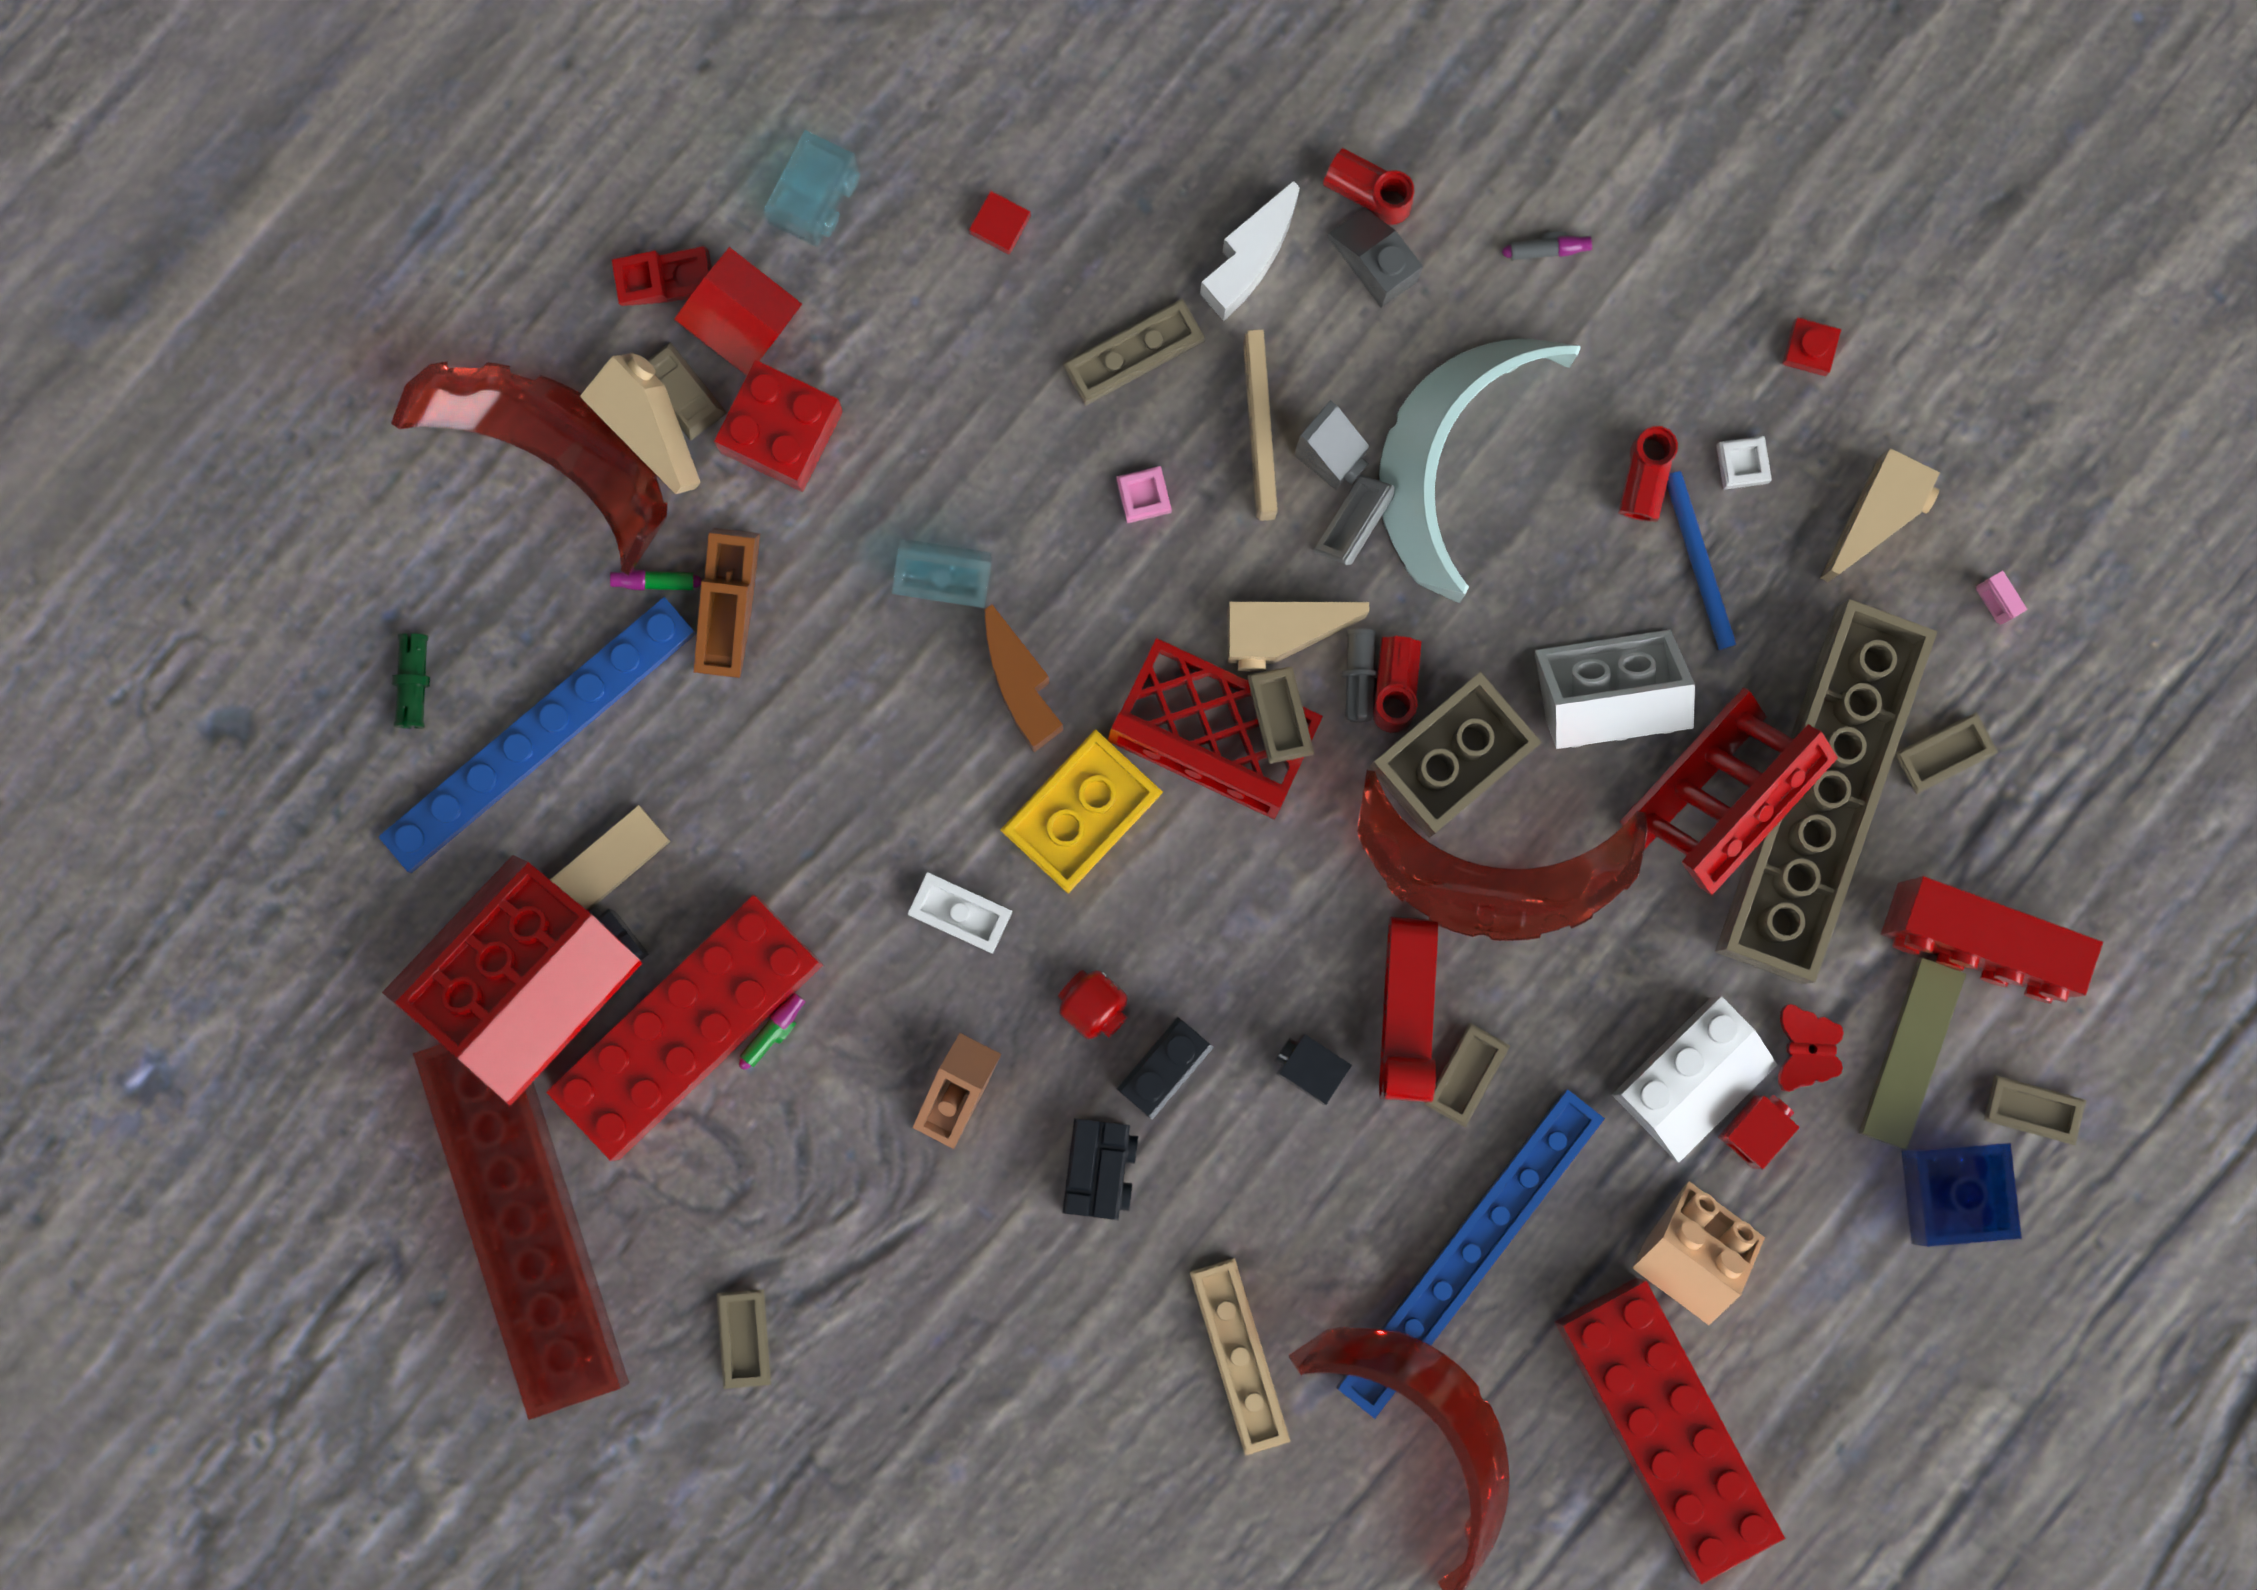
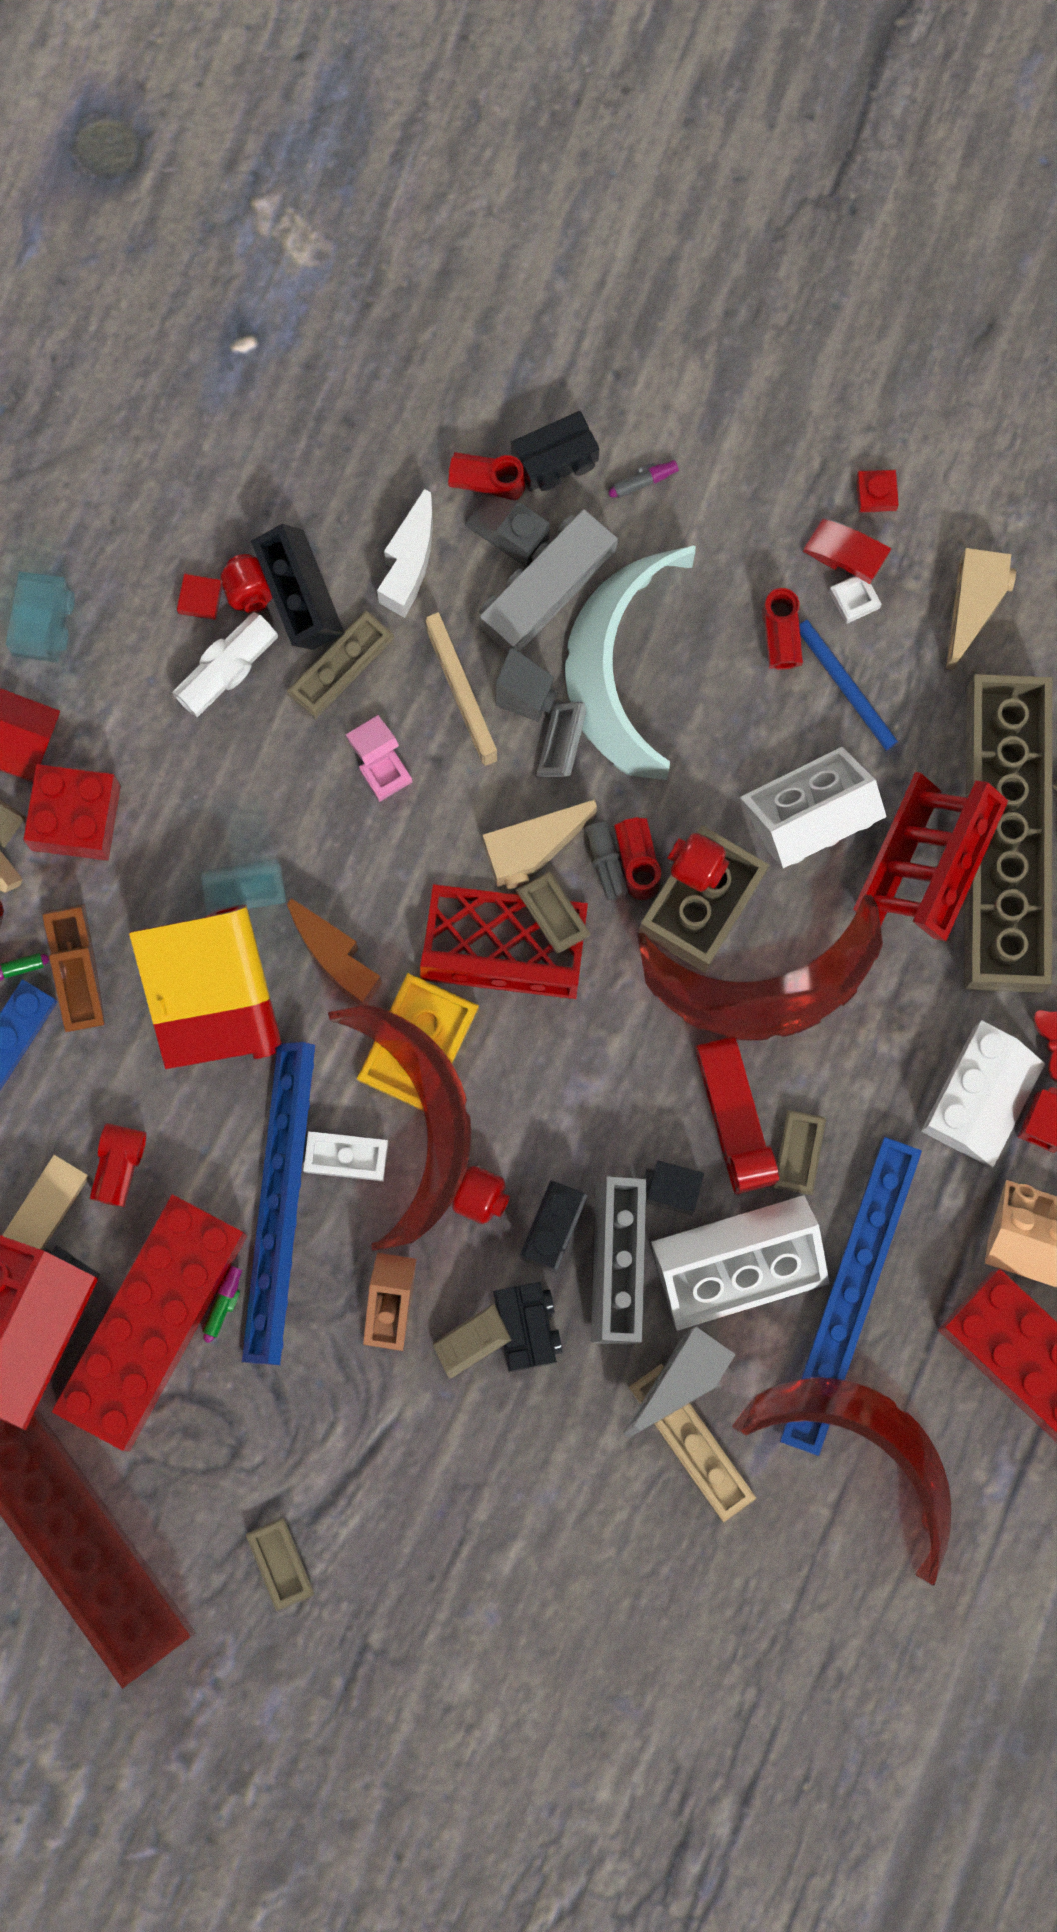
camera: 15 degrees left, 5 degrees down
(710, 828) = (119, 1153): none -> red piece
(865, 676) = (206, 989): none -> yellow door
(869, 941) = (278, 1204): none -> blue plate
(1003, 310) = (225, 664): none -> white piece
(1032, 1165) = (471, 1341): none -> dark tan tile
(1058, 225) = (245, 584): none -> red head
(1084, 905) = (444, 1113): none -> clear red windscreen
(1113, 248) = (297, 587): none -> black brick
(1141, 451) = (372, 740): none -> bright pink tile
(1224, 1130) = (618, 1261): none -> light grey brick
(1262, 1281) = (690, 1372): none -> light grey slope
(1360, 1176) = (741, 1262): none -> white slope
(1398, 334) = (547, 582): none -> light grey brick
(1458, 184) = (556, 452): none -> black brick
(1461, 715) = (698, 862): none -> red head
(1754, 404) = (847, 548): none -> red slope

